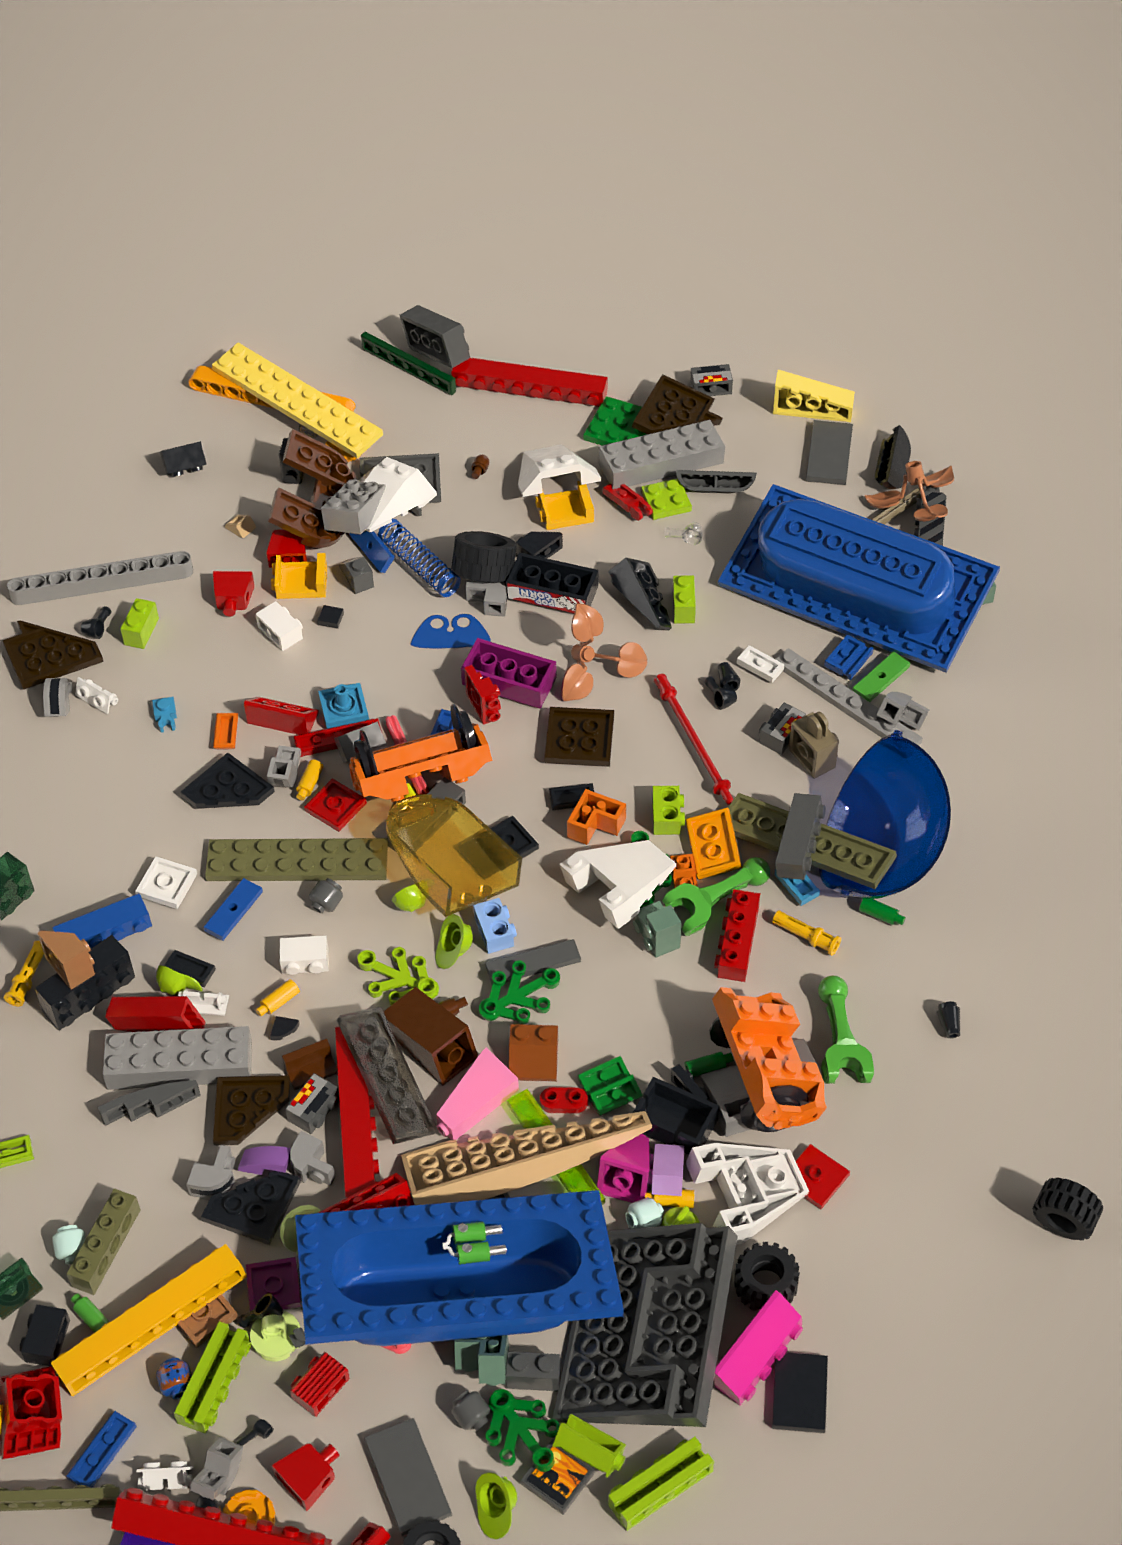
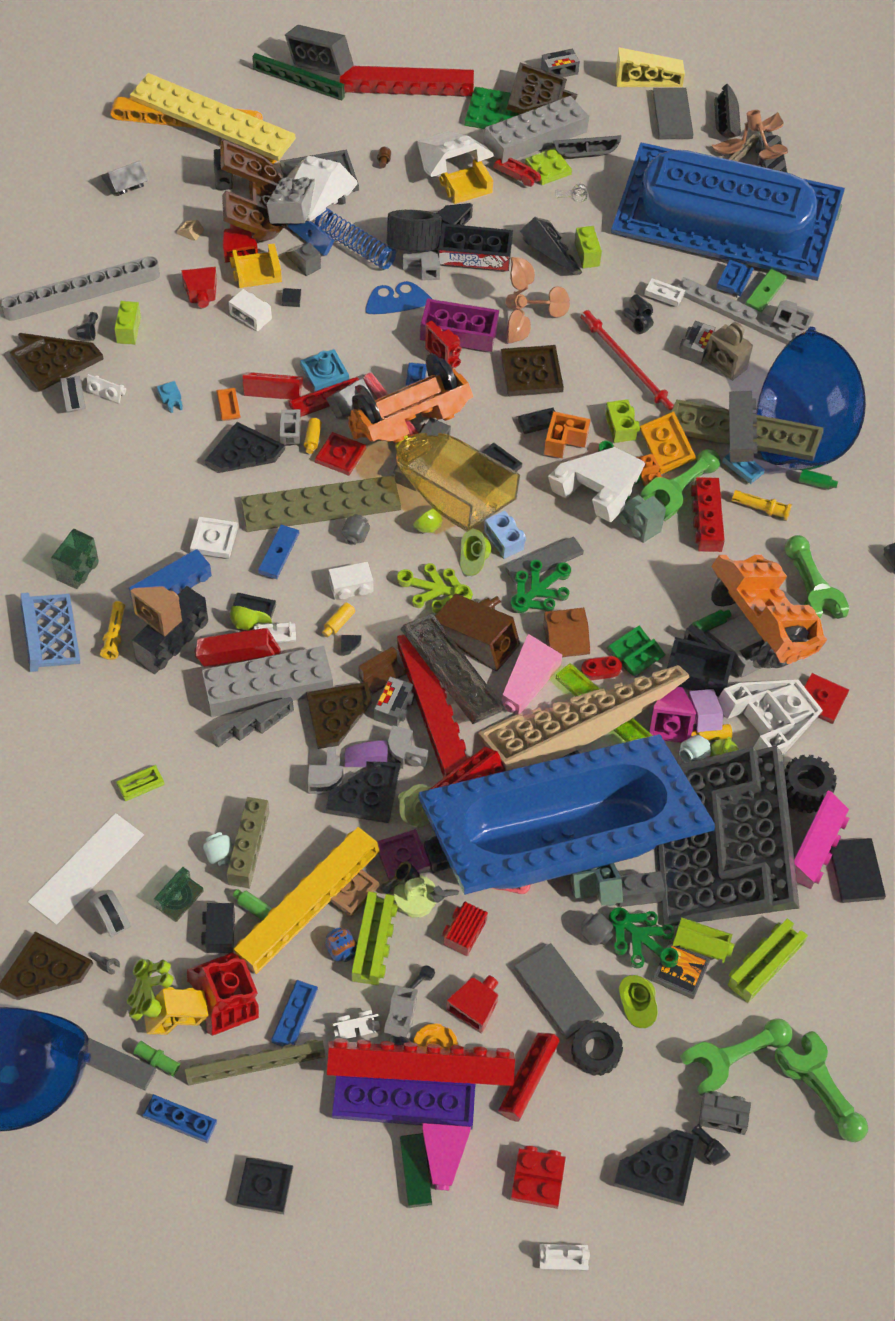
camera: 15 degrees left, 5 degrees up
(475, 1251) = (573, 799): bright green piece -> none

